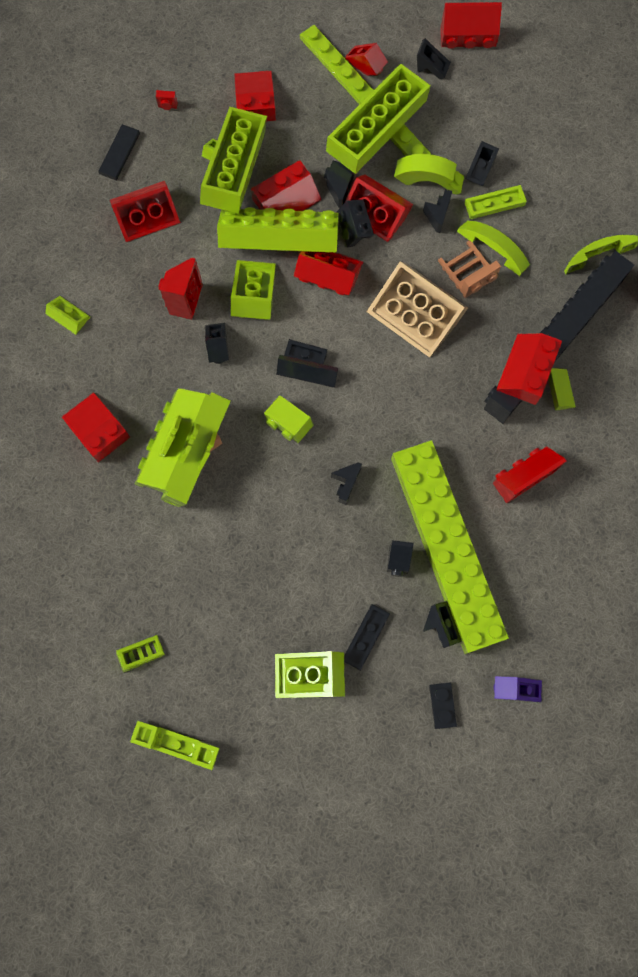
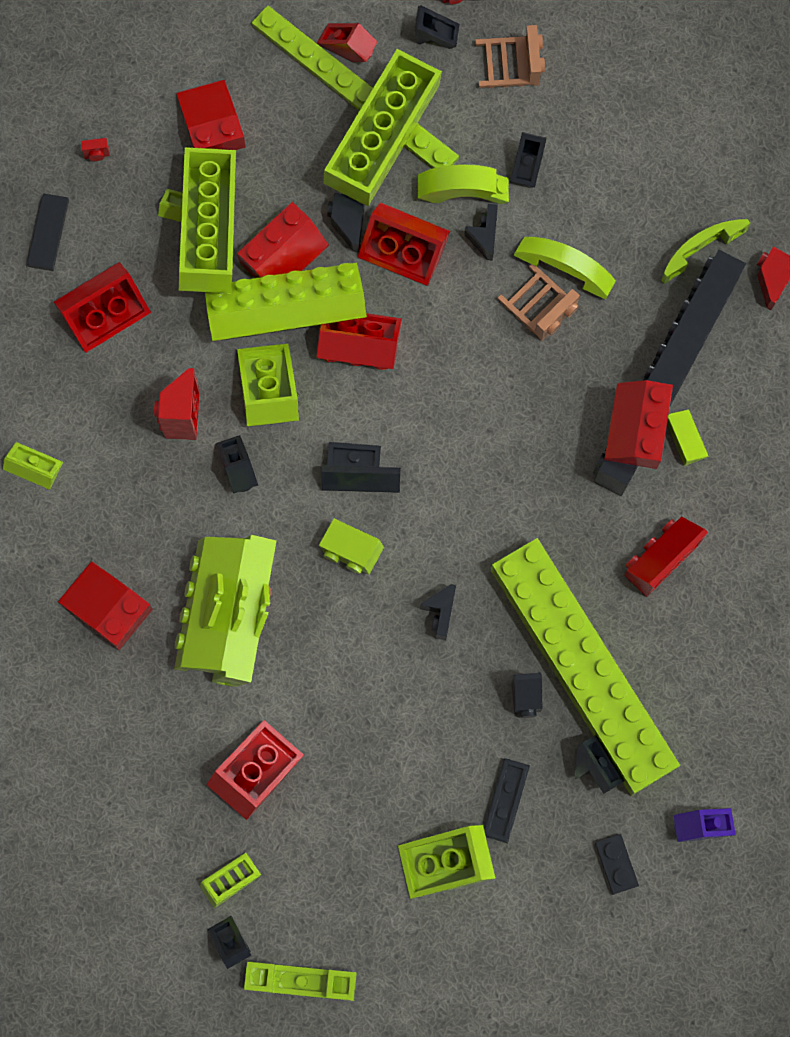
camera: 15 degrees left, 0 degrees up
(127, 703) = (229, 942): none -> black slope
(177, 572) = (254, 769): none -> red slope
(354, 222) = (380, 270): black bracket -> none
(416, 309) = (483, 369): tan slope -> none
(495, 202) = (555, 206): lime plate -> none
(496, 93) = (527, 56): none -> nougat plate

